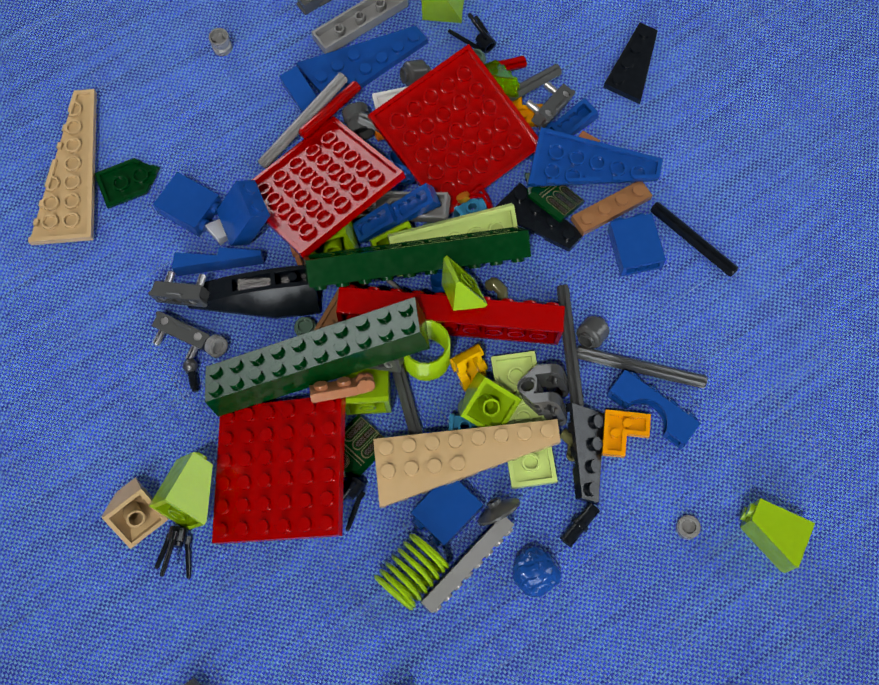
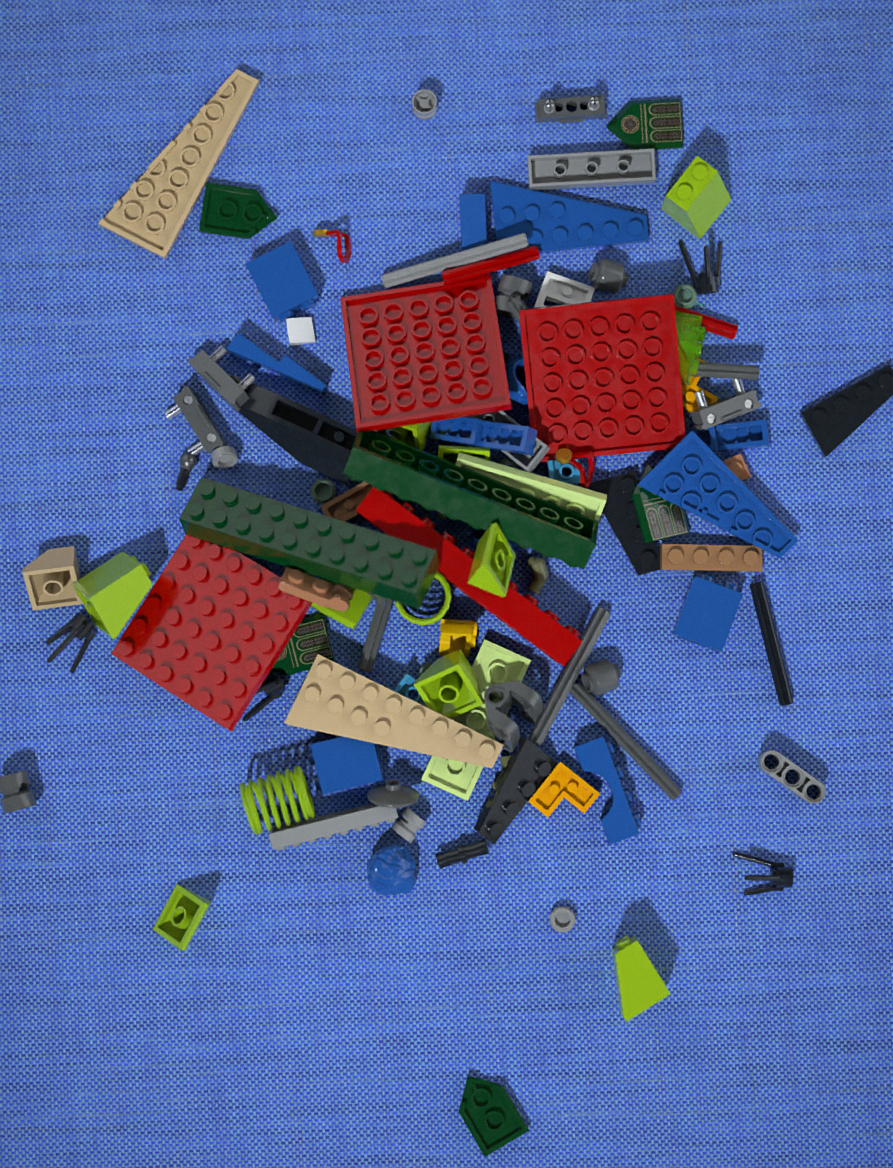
camera: 30 degrees right, 15 degrees up
(199, 158) = (321, 233): none -> red piece
(243, 212) = (330, 333): blue brick -> none
(525, 528) = (408, 825): none -> light grey wheel
(784, 312) = (803, 778): none -> light grey beam
(819, 393) = (779, 878): none -> black plant

